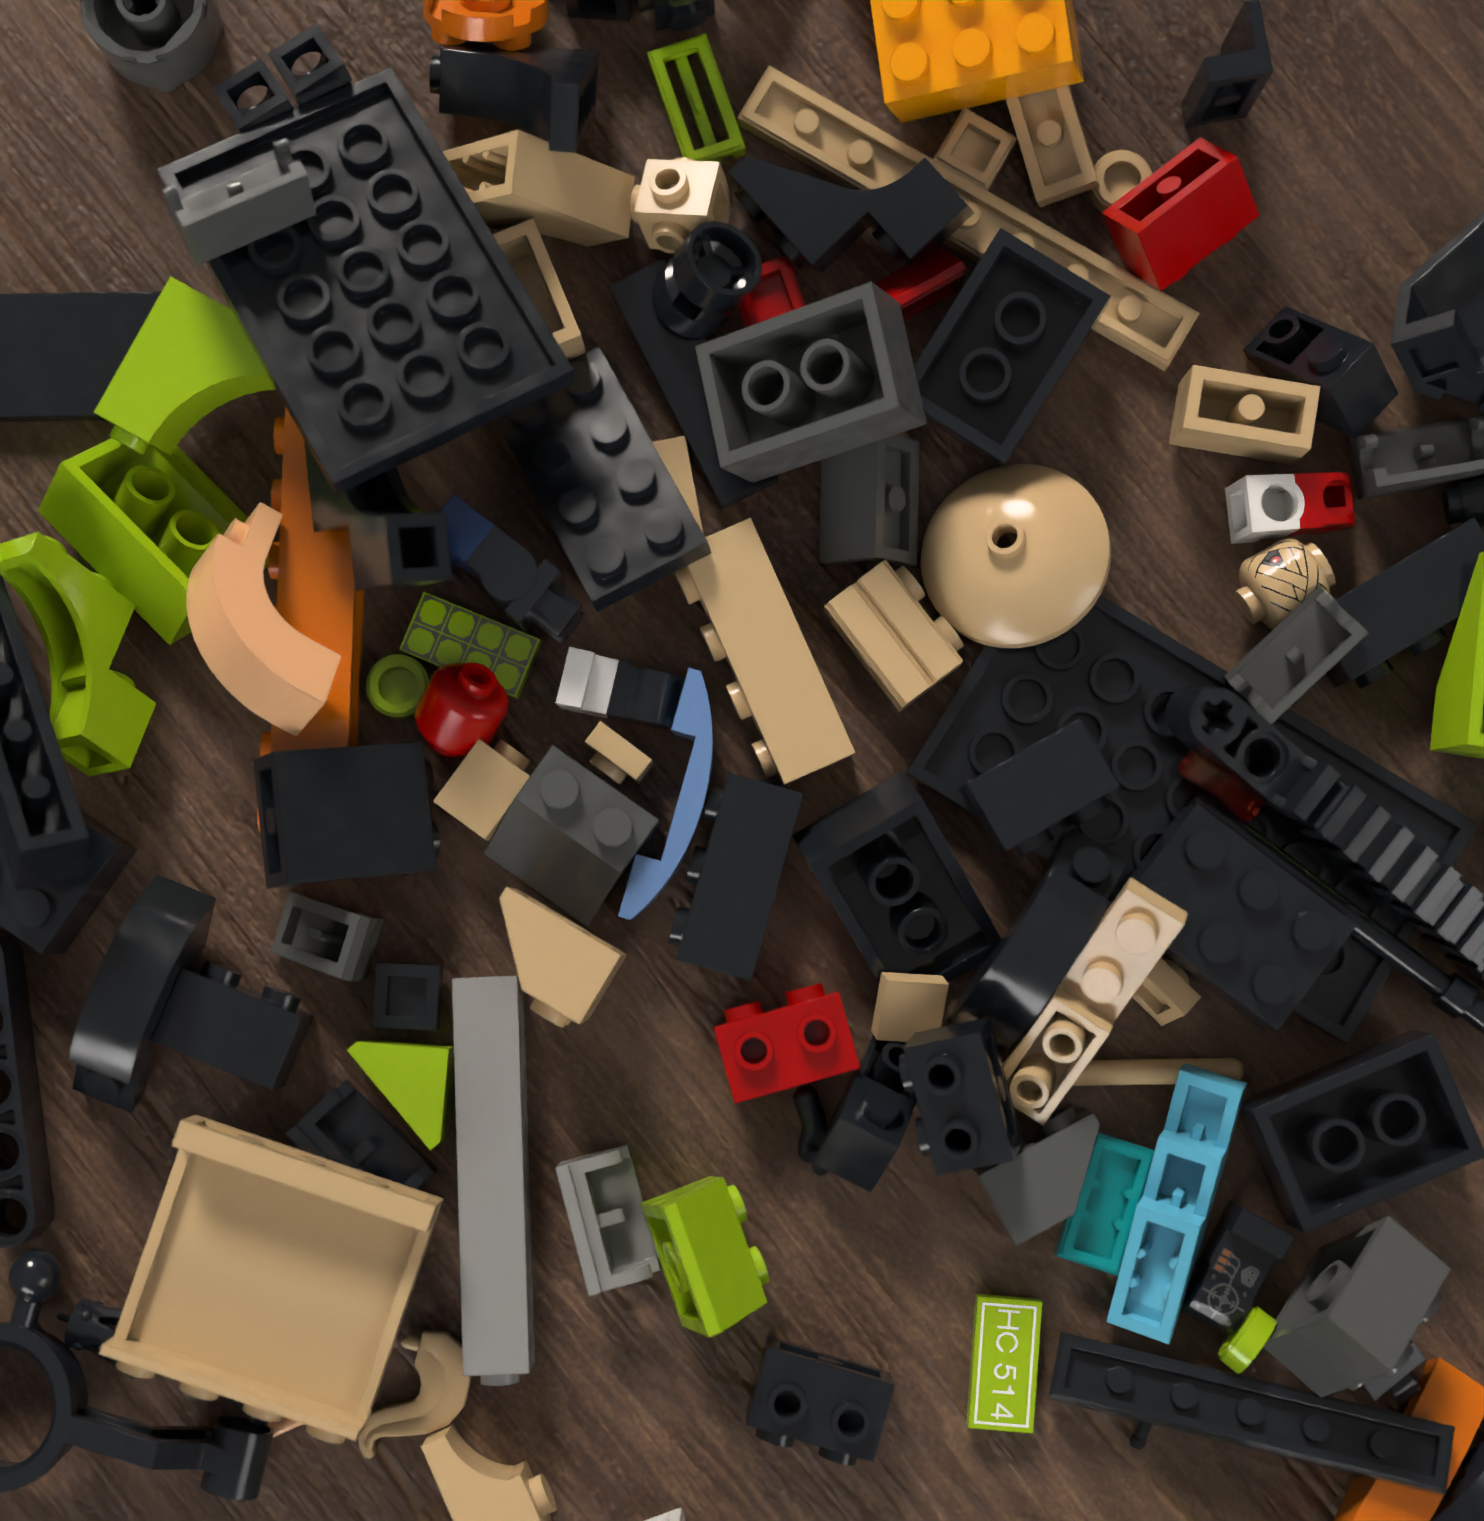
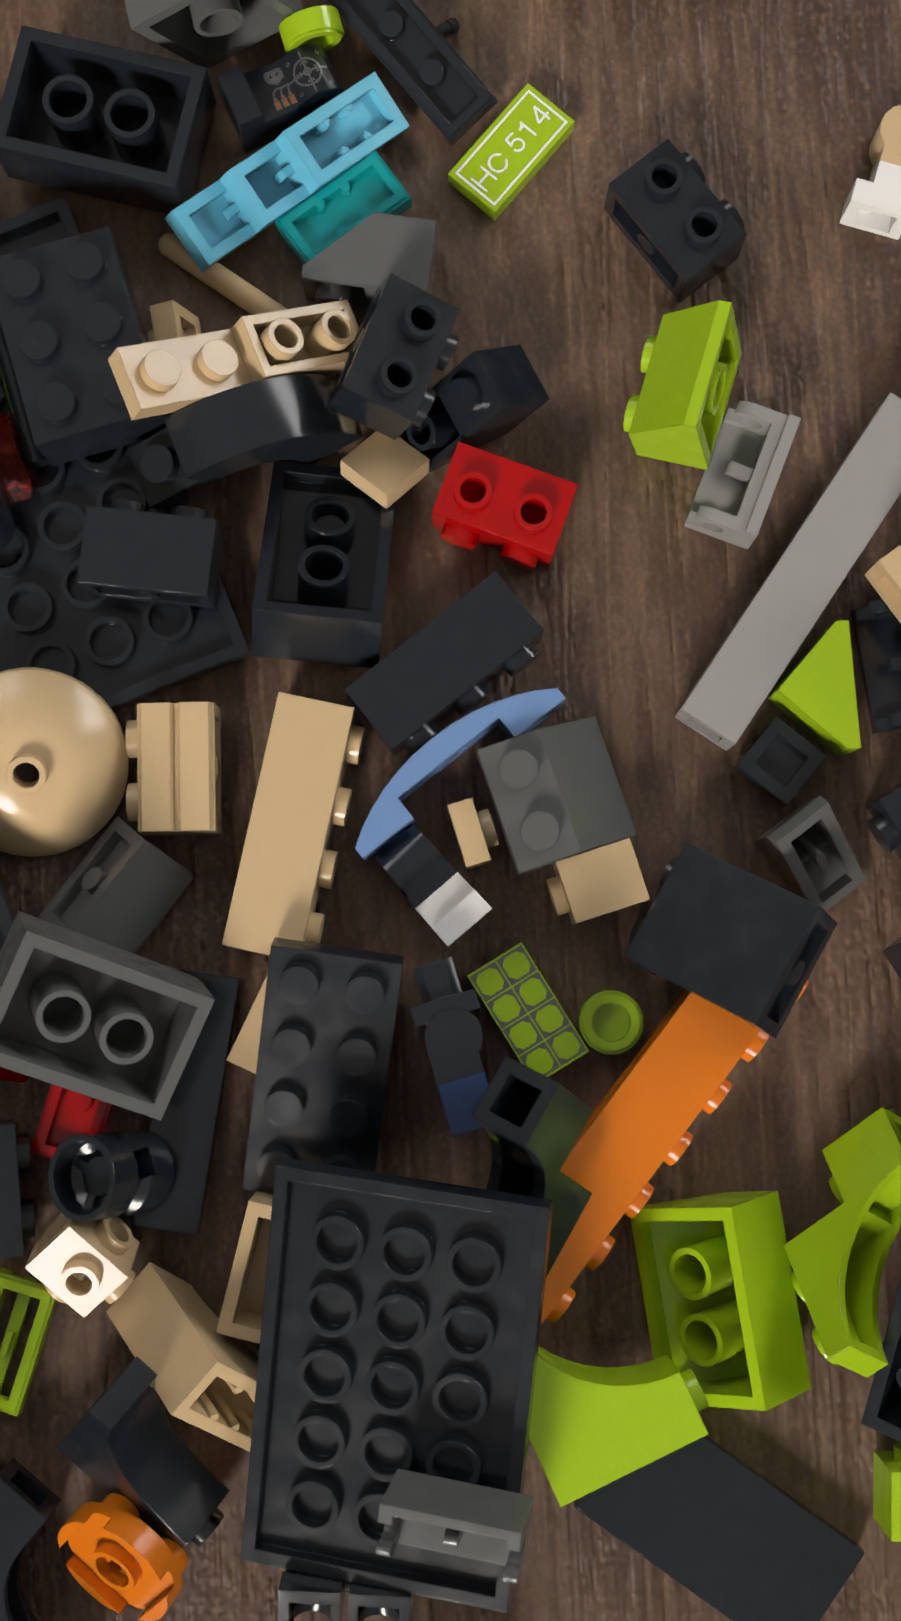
camera: 140 degrees left, 0 degrees up
(244, 636) = (713, 1145): light nougat arch -> none
(461, 708) = (573, 961): red head -> none
(557, 959) = (636, 695): tan slope -> none
(813, 1124) = (530, 431): black piece -> none

